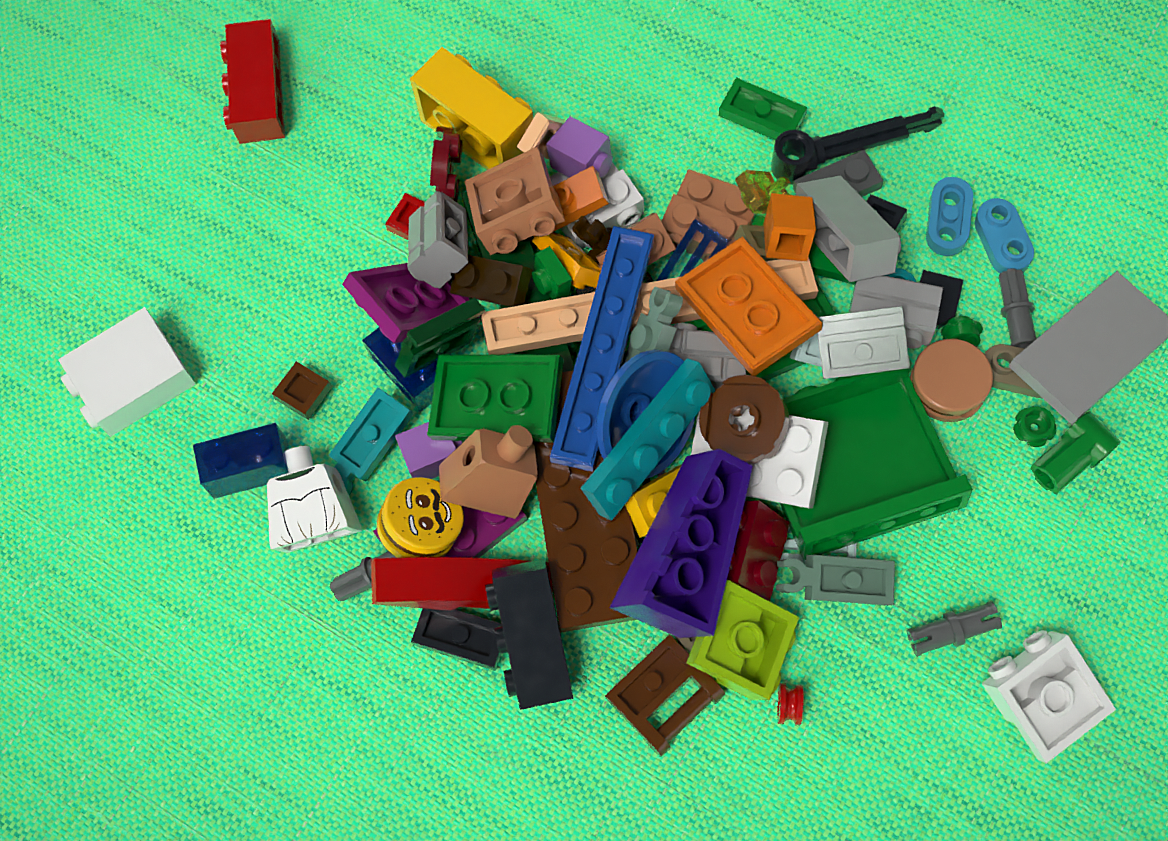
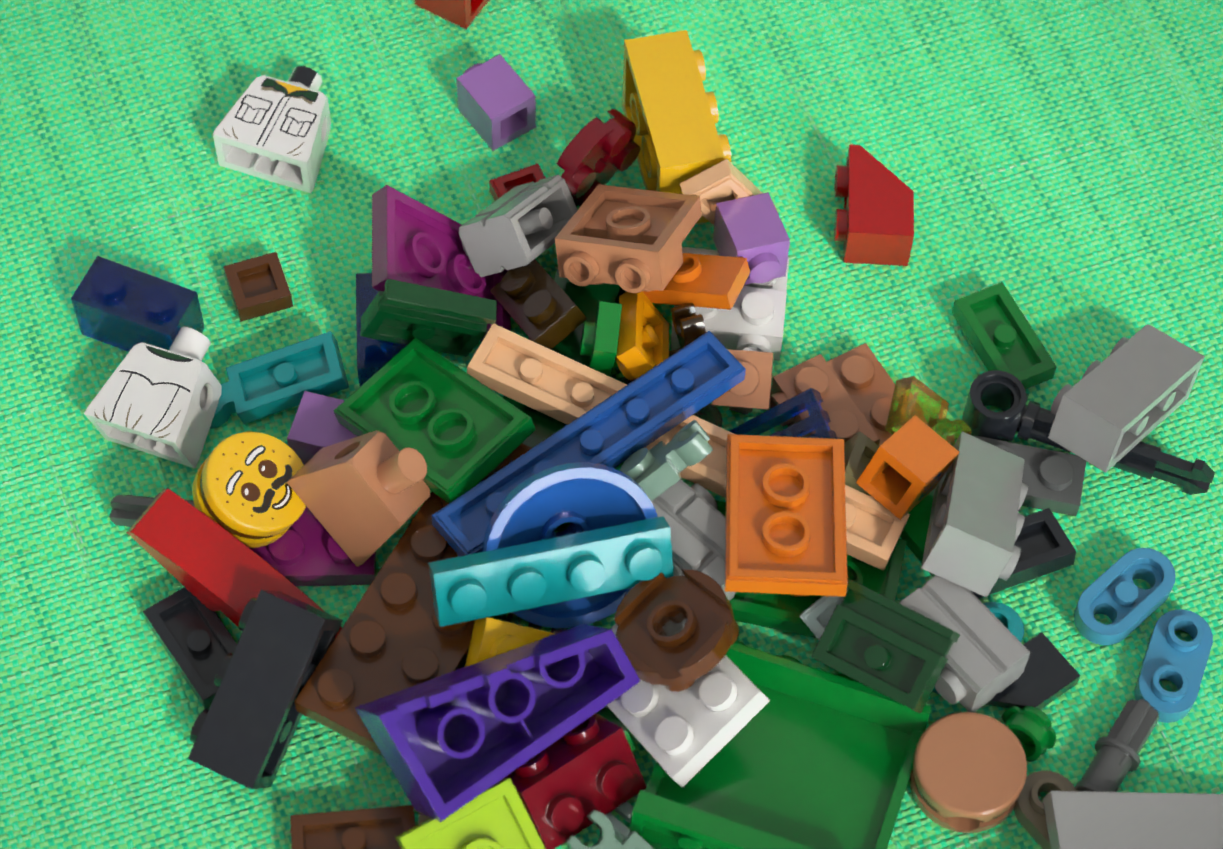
camera: 30 degrees right, 10 degrees down
(124, 373) = (101, 148): white brick -> none
(228, 283) = (277, 130): none -> white torso
(347, 171) = (496, 102): none -> medium lavender brick
(629, 84) = (876, 211): none -> red slope
(863, 99) = (1124, 396): none -> light grey brick

